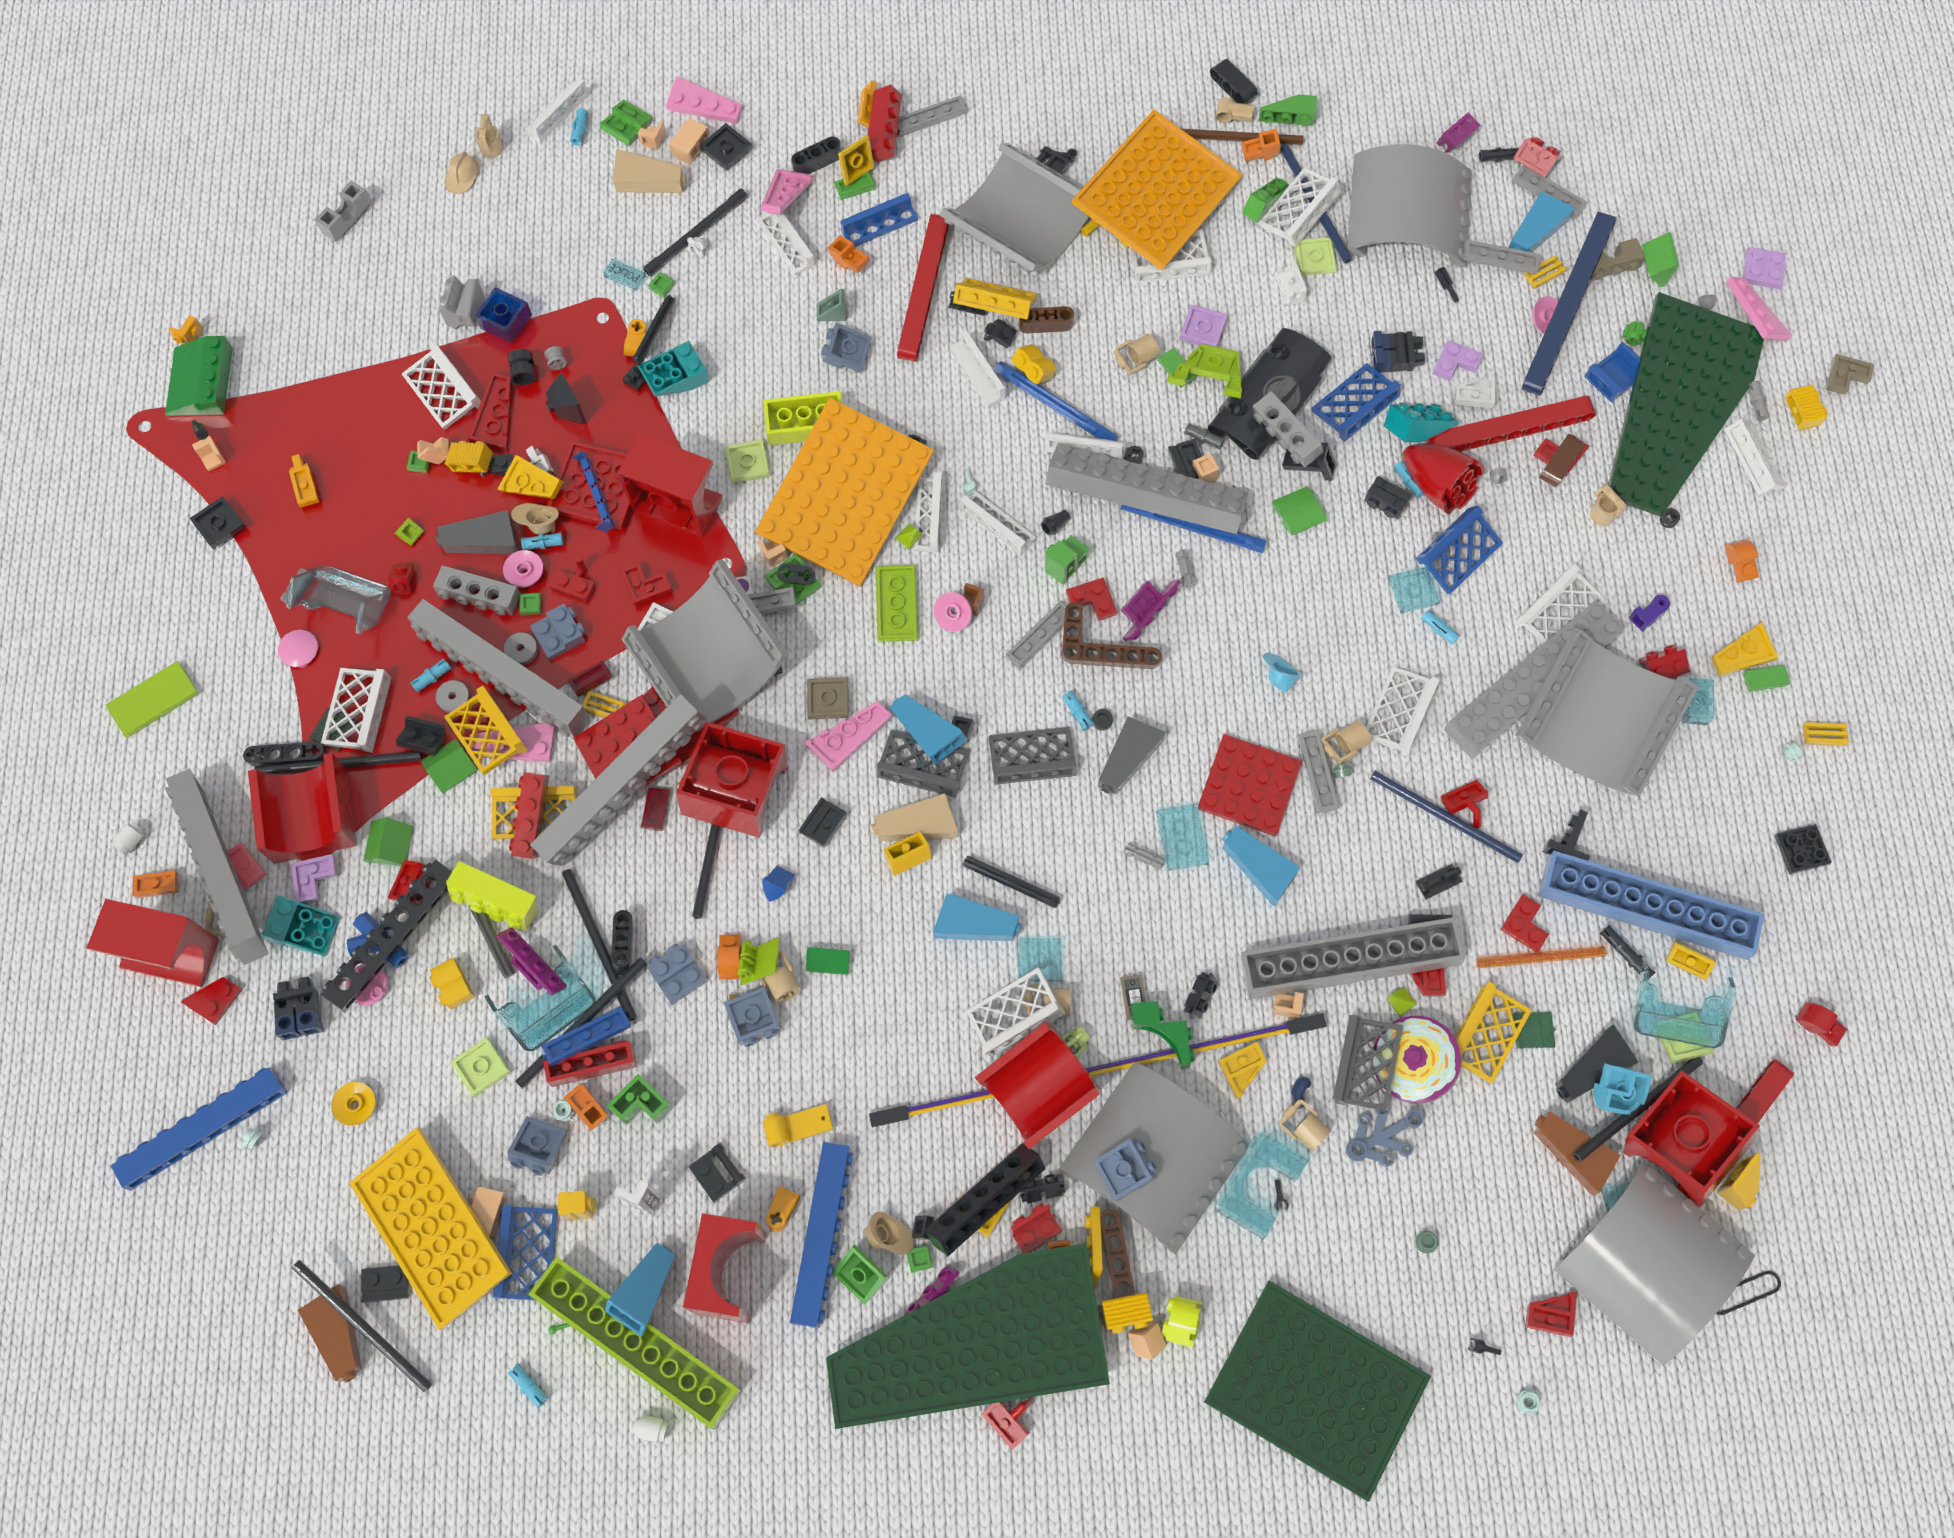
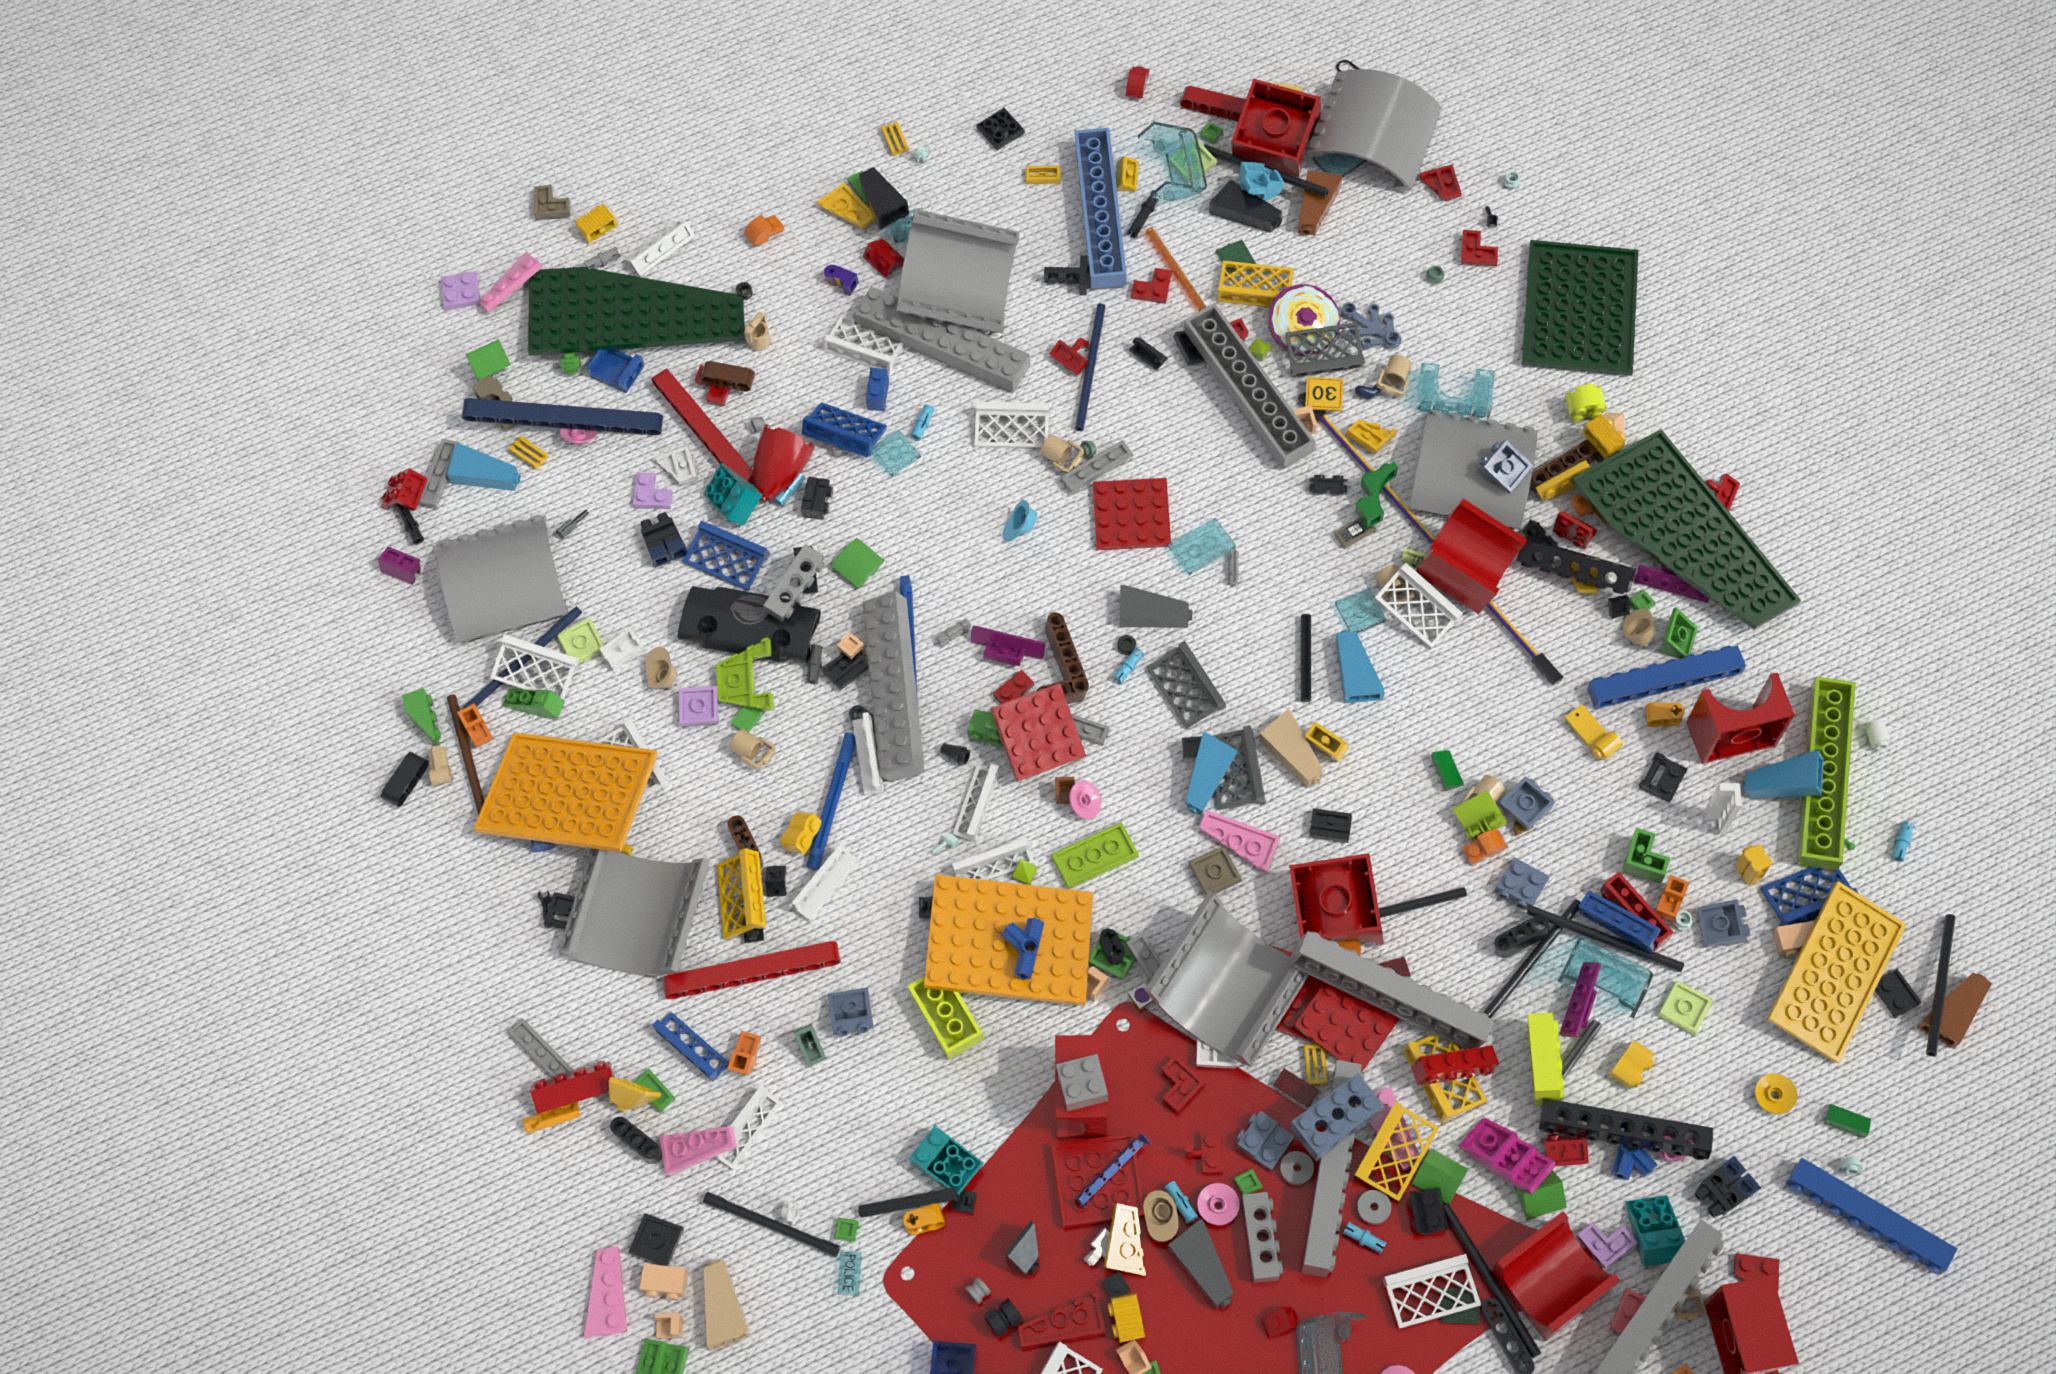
camera: 110 degrees left, 5 degrees down
(294, 1161) = (1847, 1121): none -> green slope
(409, 531) = (1229, 1342): lime slope -> none
(430, 826) = (1507, 1155): none -> dark pink slope
(523, 656) = (1337, 1102): none -> sand blue brick
(653, 458) = (1082, 1082): none -> light grey brick
(747, 461) = (1009, 1052): yellowish green tile -> none
(777, 883) = (1402, 836): blue tile -> none
(833, 489) = (1019, 940): none -> blue piece
(1035, 589) = (1038, 732): none -> plate
(1250, 305) = (659, 669): none -> tan piece
(1260, 863) = (1199, 477): dark azure slope -> none
(1279, 1196) = (1458, 377): black hand -> none
(1313, 1039) = (1324, 393): none -> yellow piece
(1441, 1300) = (1474, 253): none -> red plate
(1495, 596) = (877, 389): none -> blue brick
(1501, 256) = (531, 485): light grey plate -> none
(1707, 301) = (513, 321): light grey hinge -> none
(1716, 884) = (1043, 177): none -> yellow tile
(1719, 1078) = (1211, 133): none -> bright green tile
(1737, 679) = (883, 199): none -> black slope

